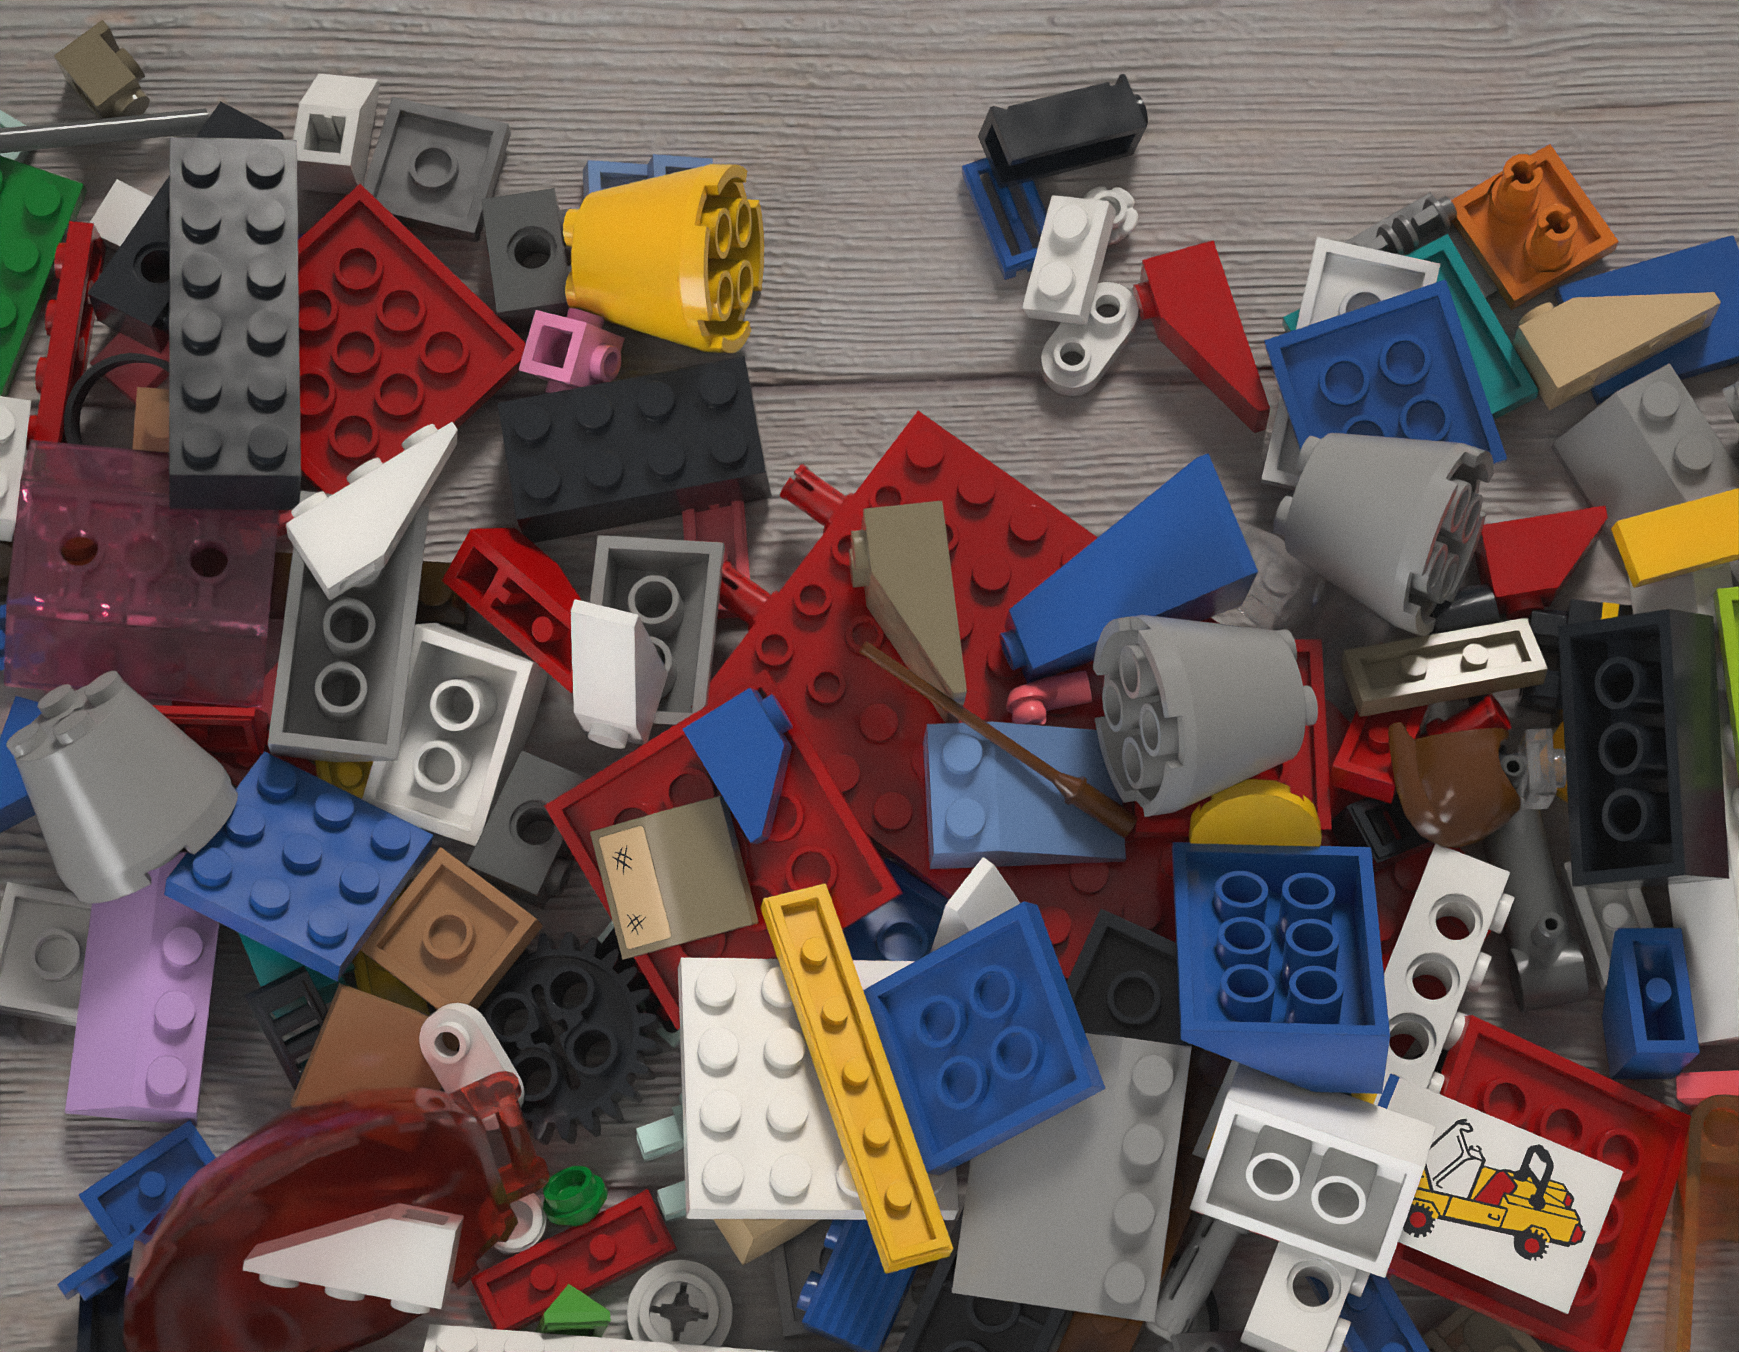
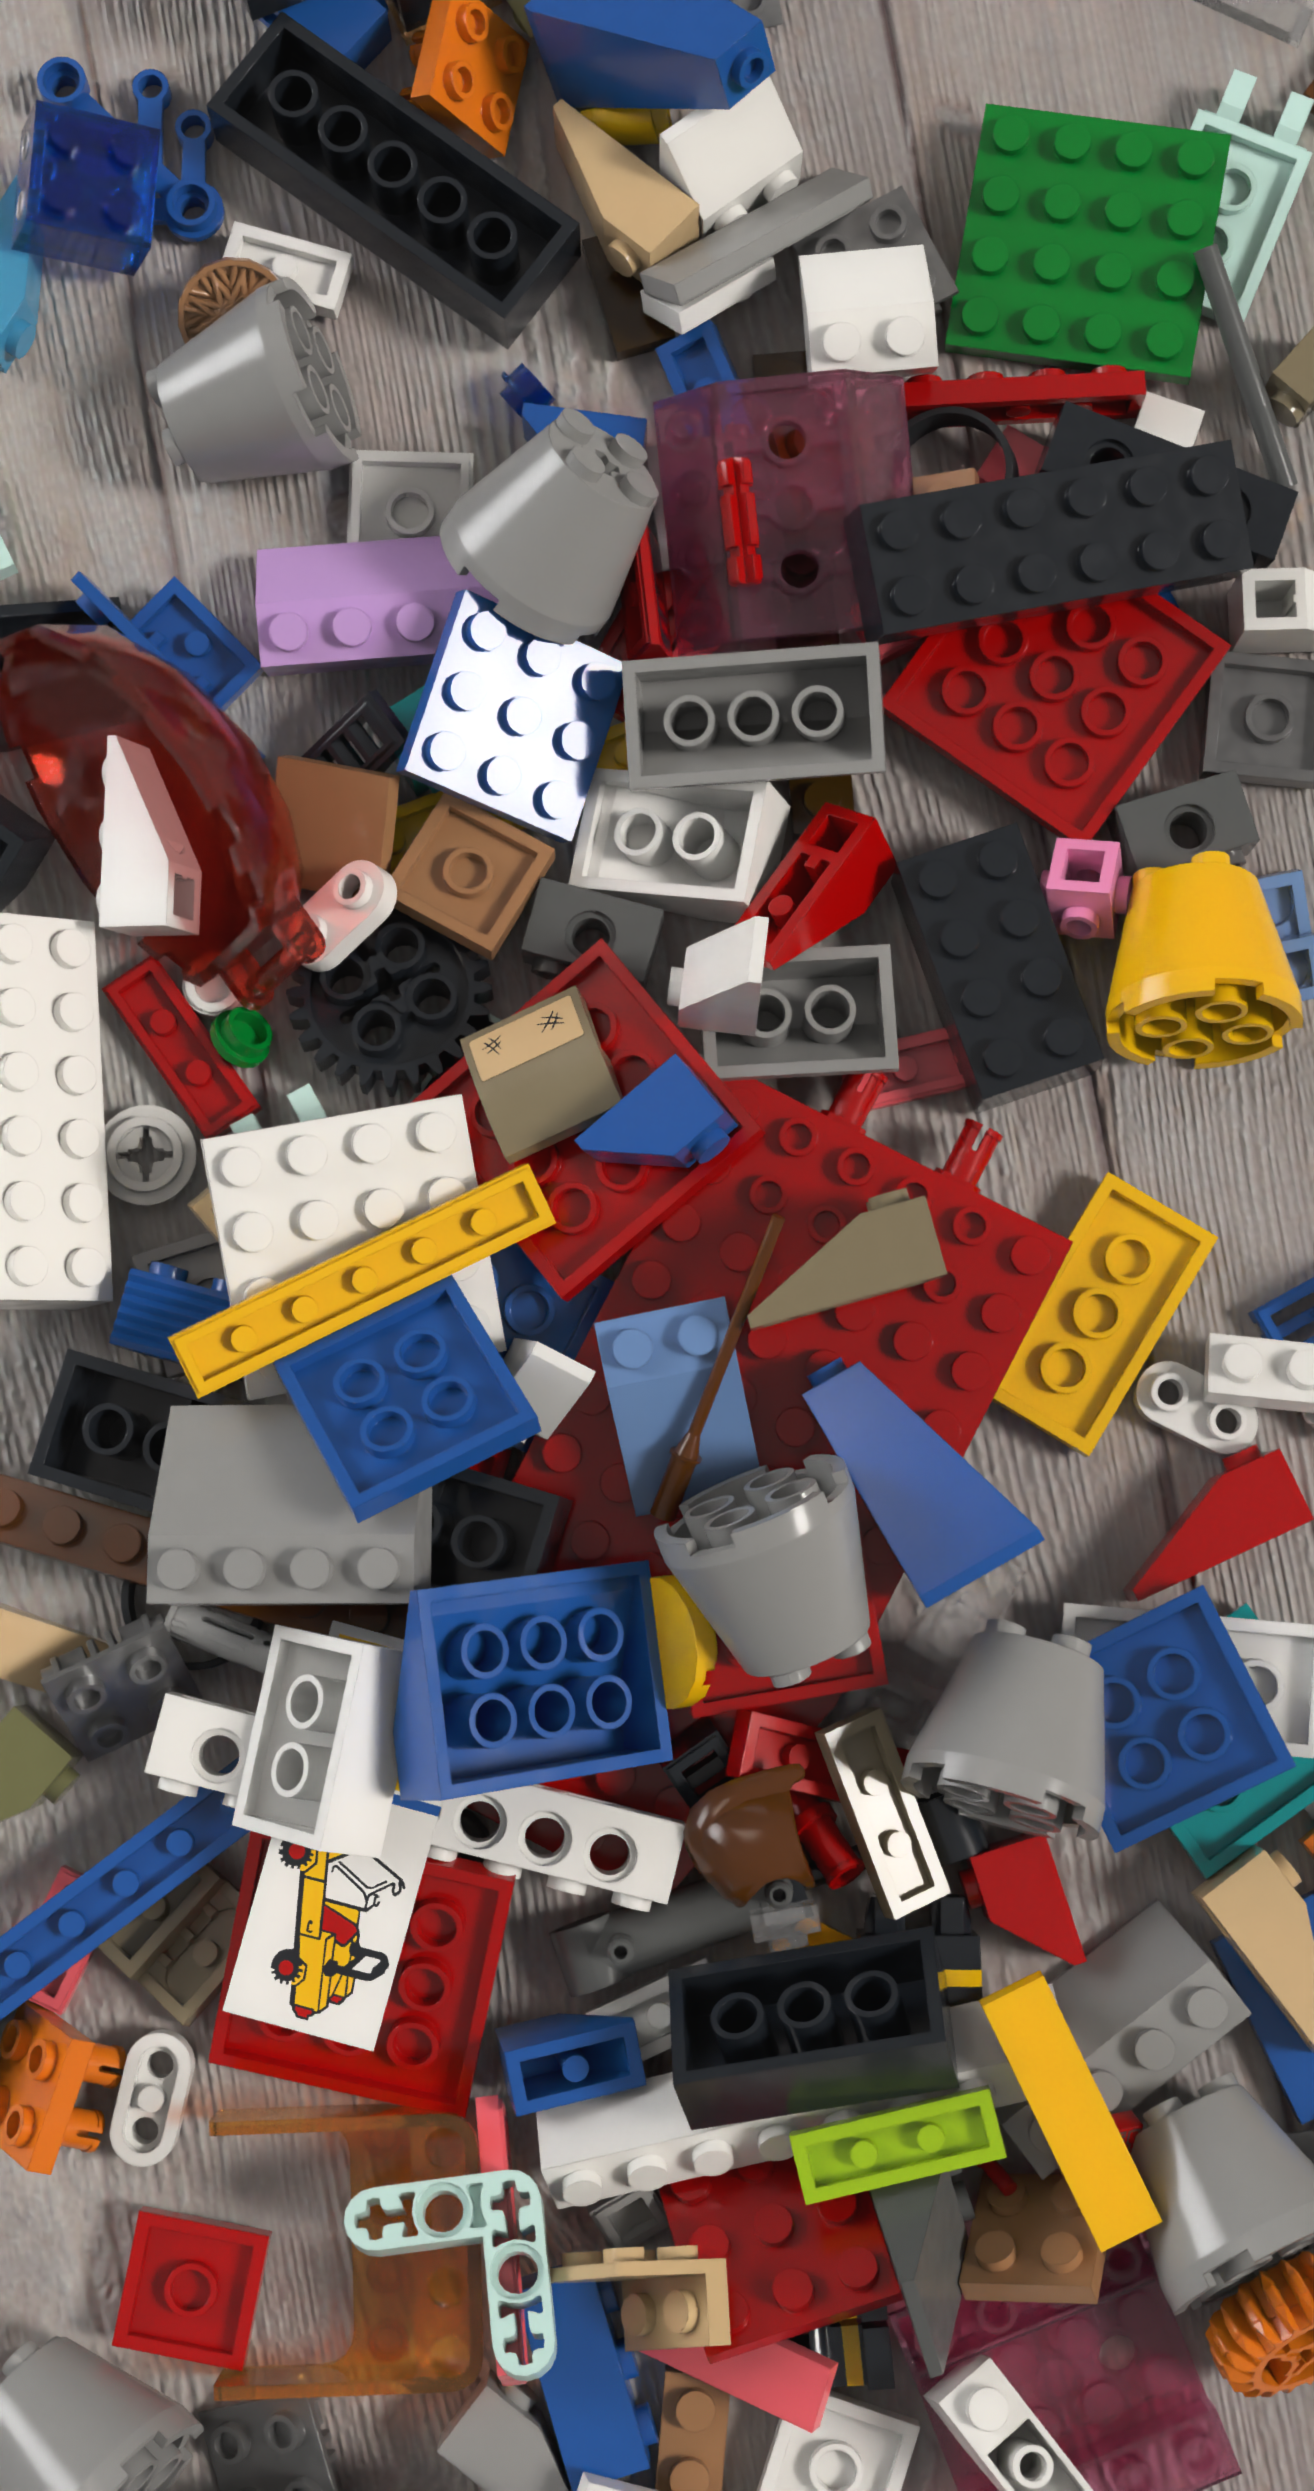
camera: 75 degrees right, 10 degrees up
(153, 603) = (739, 521): none -> red axle
(361, 525) = (850, 709): white slope -> none
(574, 1315) = (124, 1053): bright green slope -> none
(988, 400) = (1103, 1313): none -> yellow plate
(1032, 700) = (789, 1410): coral arm -> none

